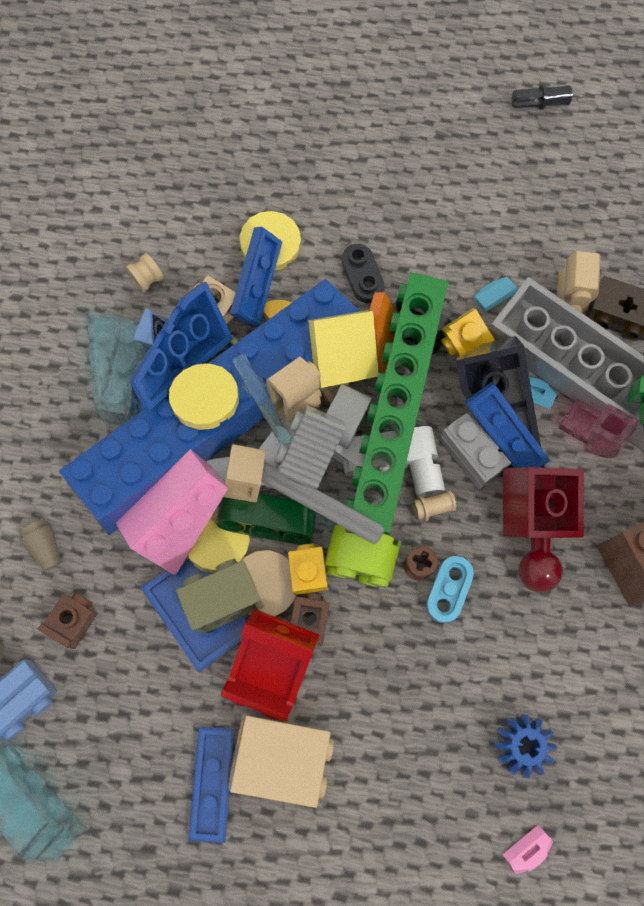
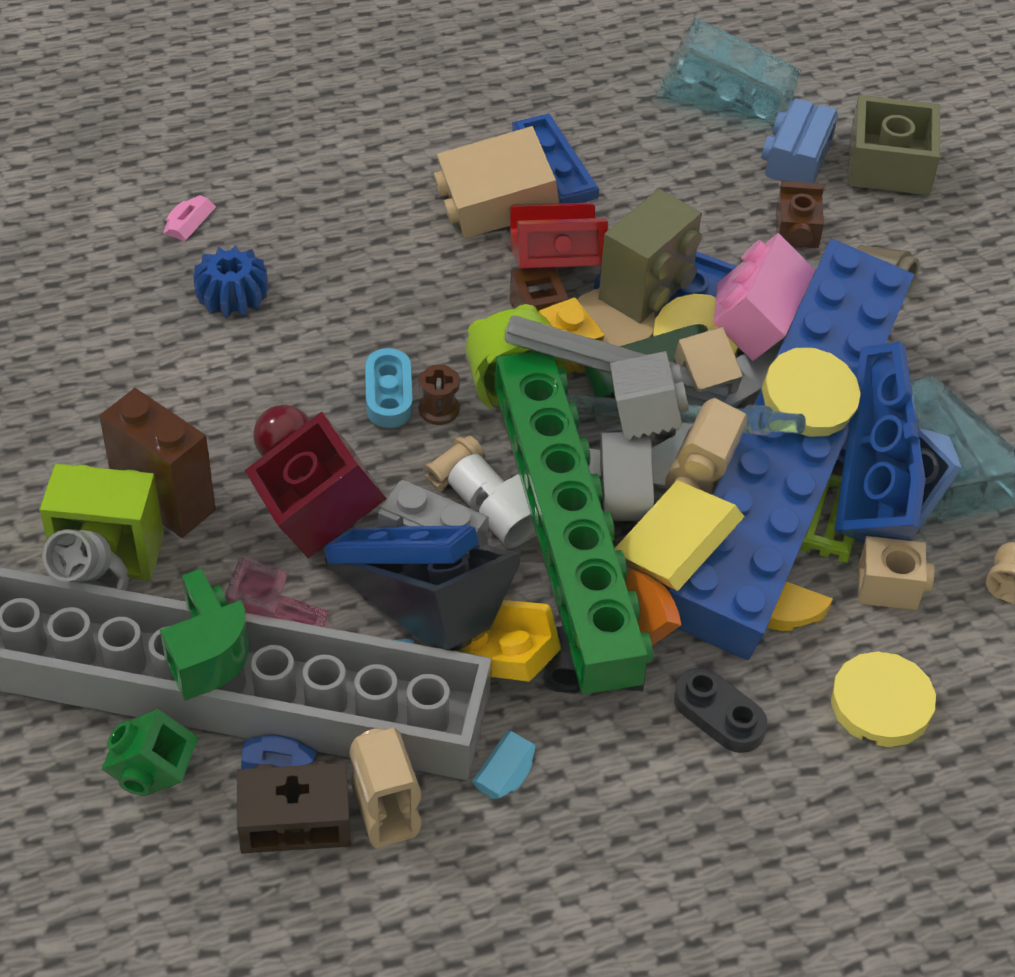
camera: 155 degrees right, 25 degrees down
(256, 277) = (861, 613): blue tile -> none

